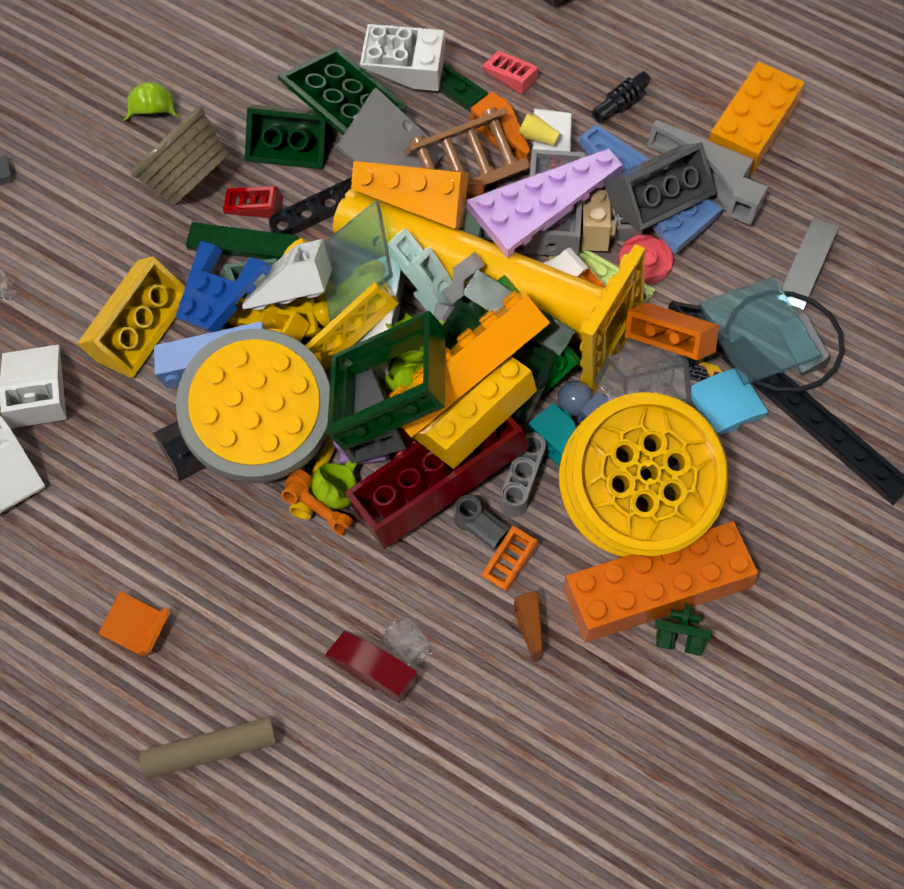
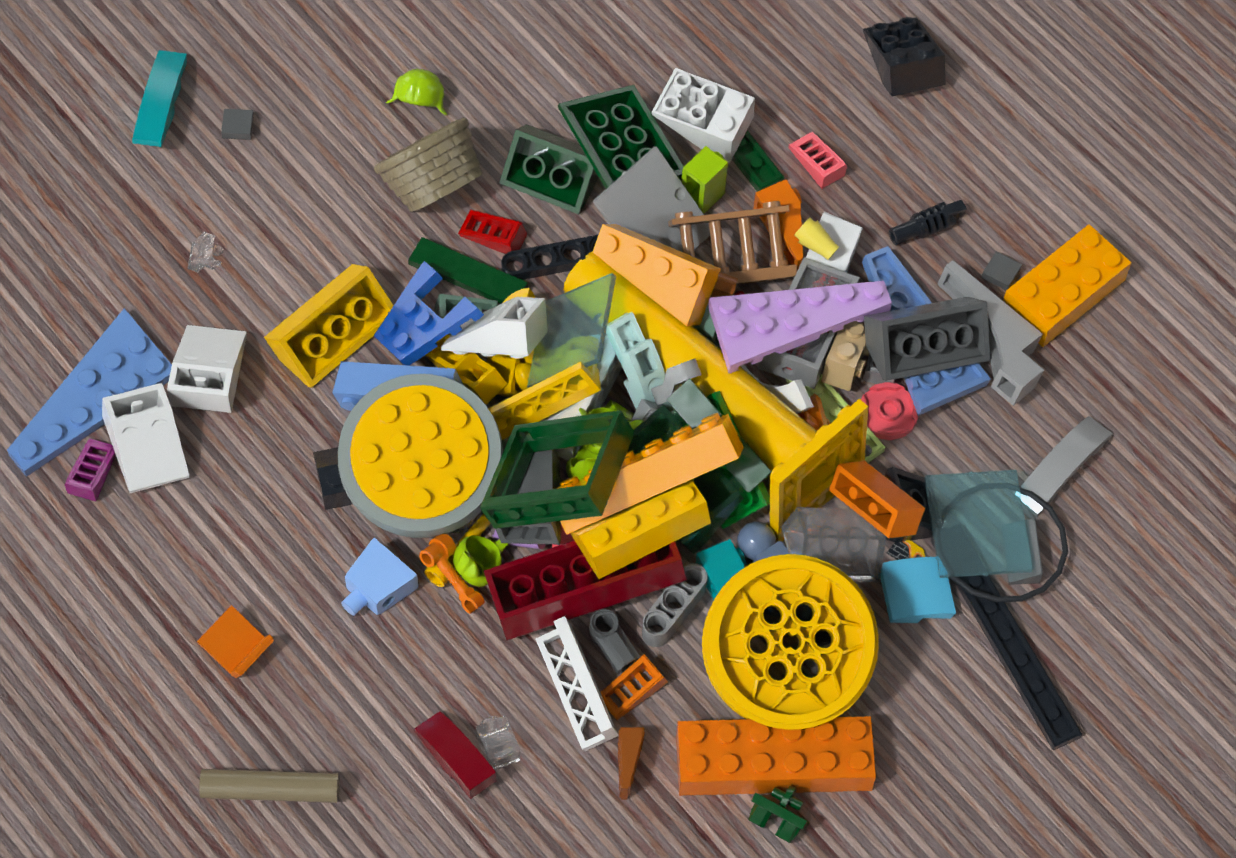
camera: 15 degrees right, 0 degrees up
(249, 529) = (377, 580): none -> light blue torso
(424, 105) = (705, 178): none -> lime brick
(464, 559) = (584, 677): none -> white fence
(696, 120) = (1001, 271): none -> dark grey tile

